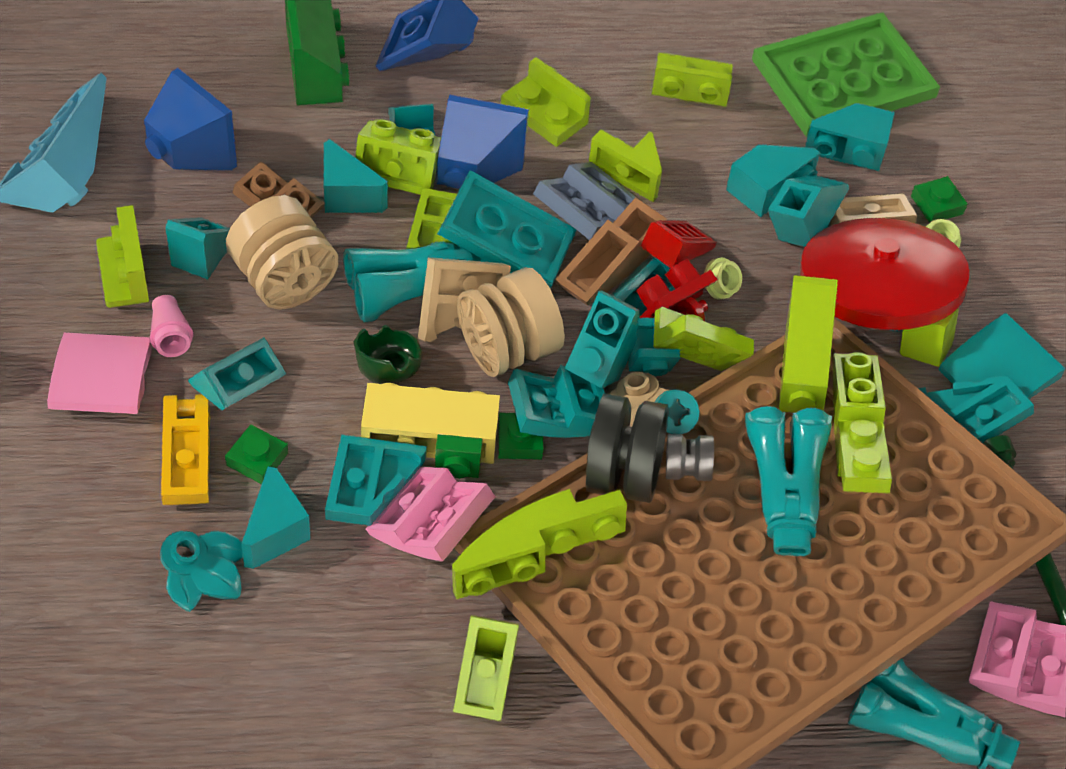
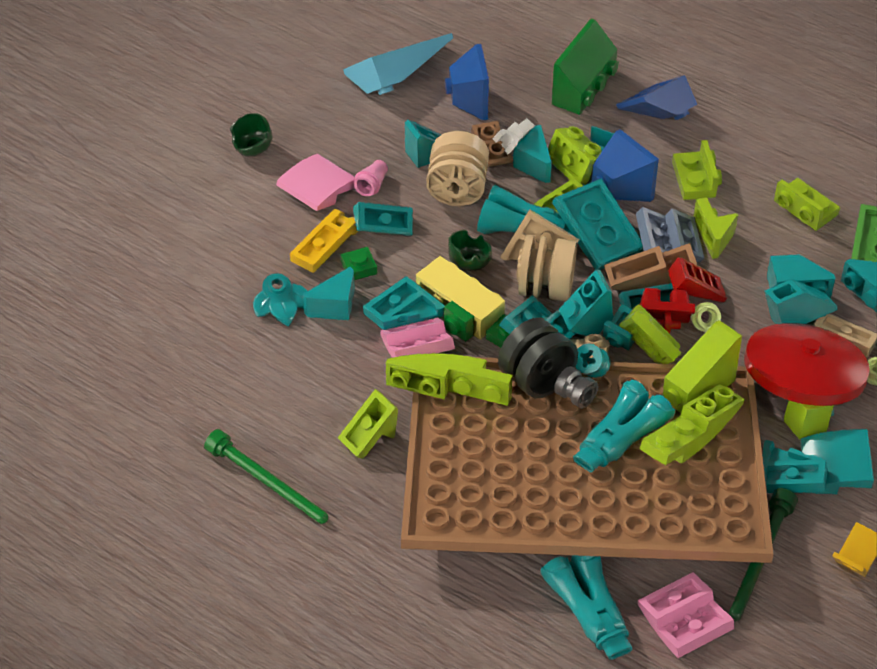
camera: 45 degrees right, 5 degrees down
(122, 262) = (378, 133): lime bracket -> none
(312, 170) = (513, 134): none -> white plate

